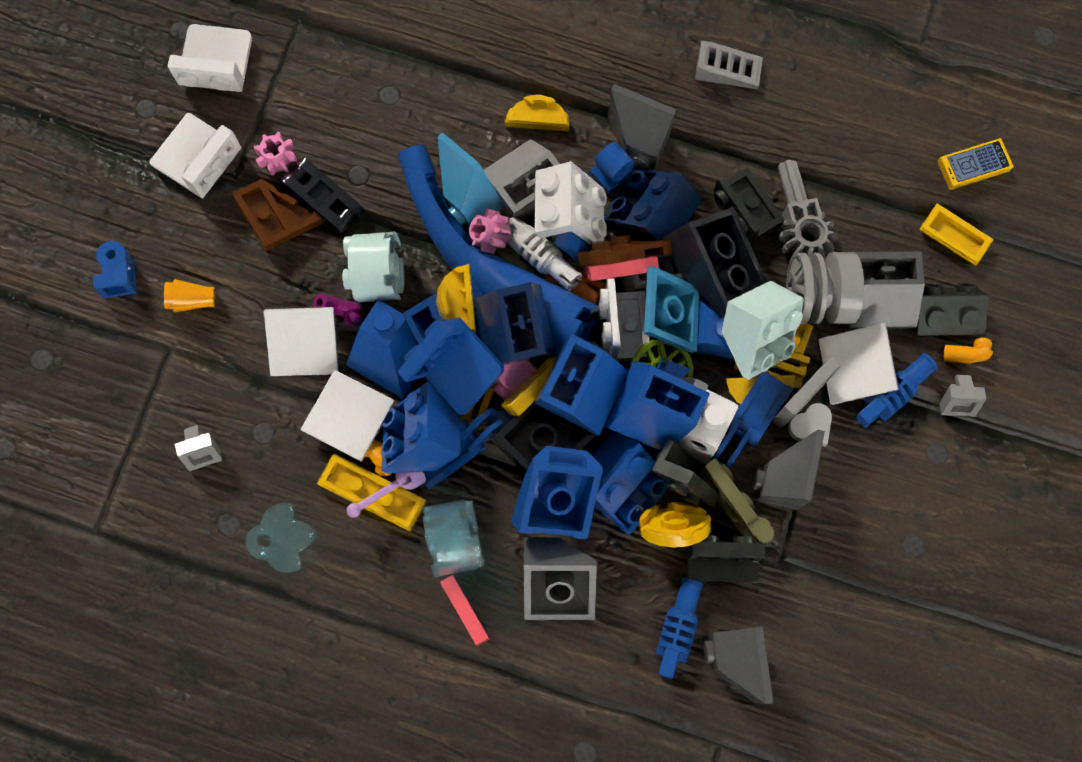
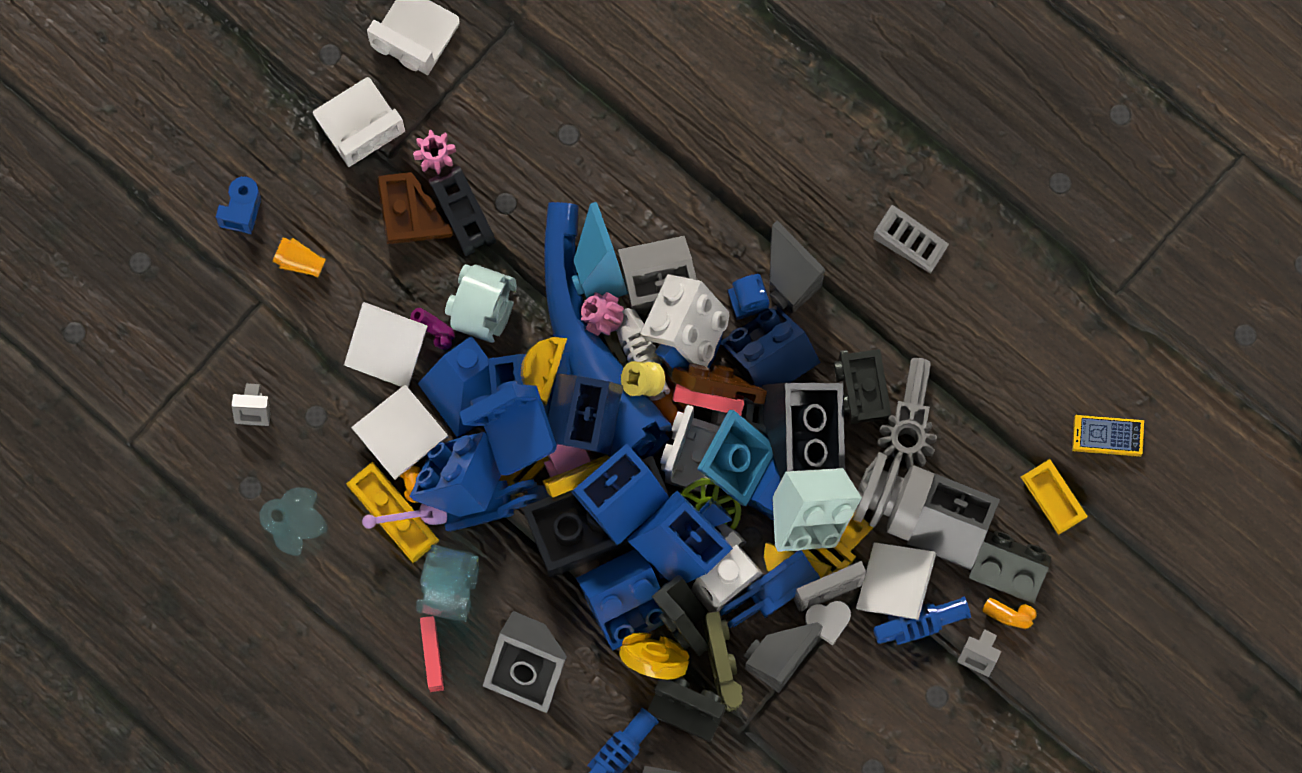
camera: 25 degrees right, 0 degrees up
(538, 113) = (704, 212): yellow tile -> none
(558, 493) = (557, 581): blue slope -> none
(563, 273) = (643, 378): none -> light yellow wheel

